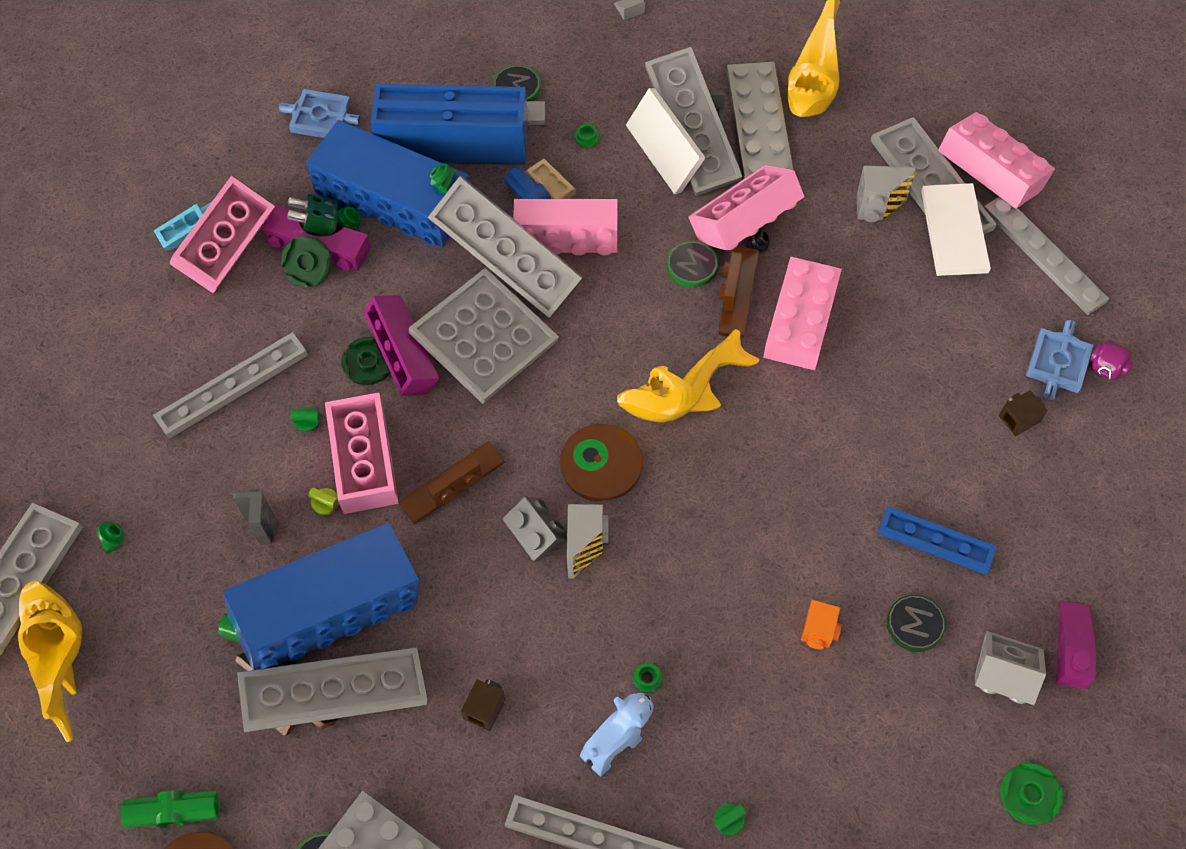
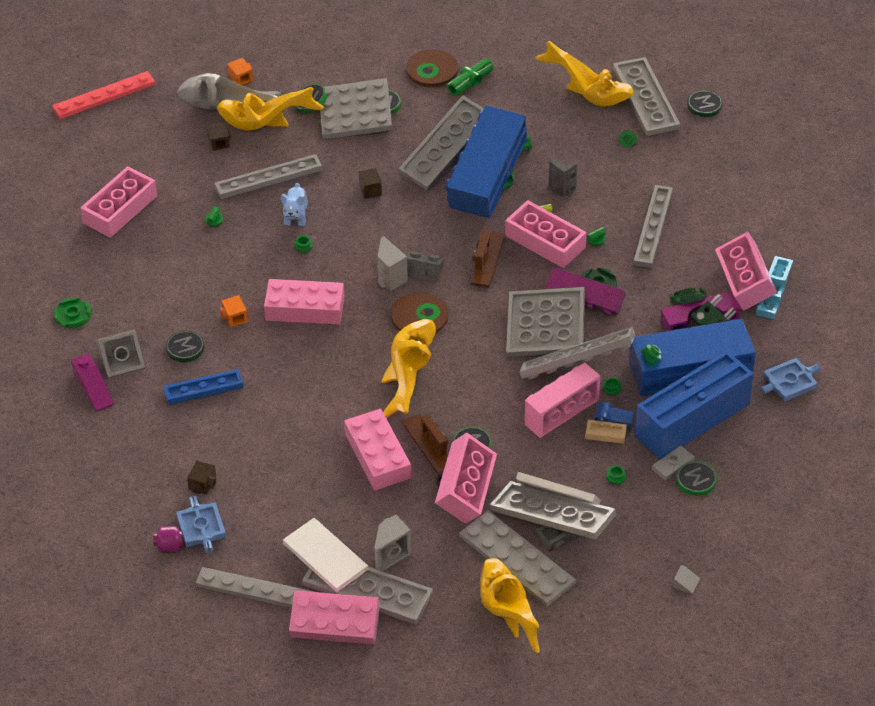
camera: 140 degrees right, 15 degrees down
(725, 571) = (304, 301): none -> bright pink brick

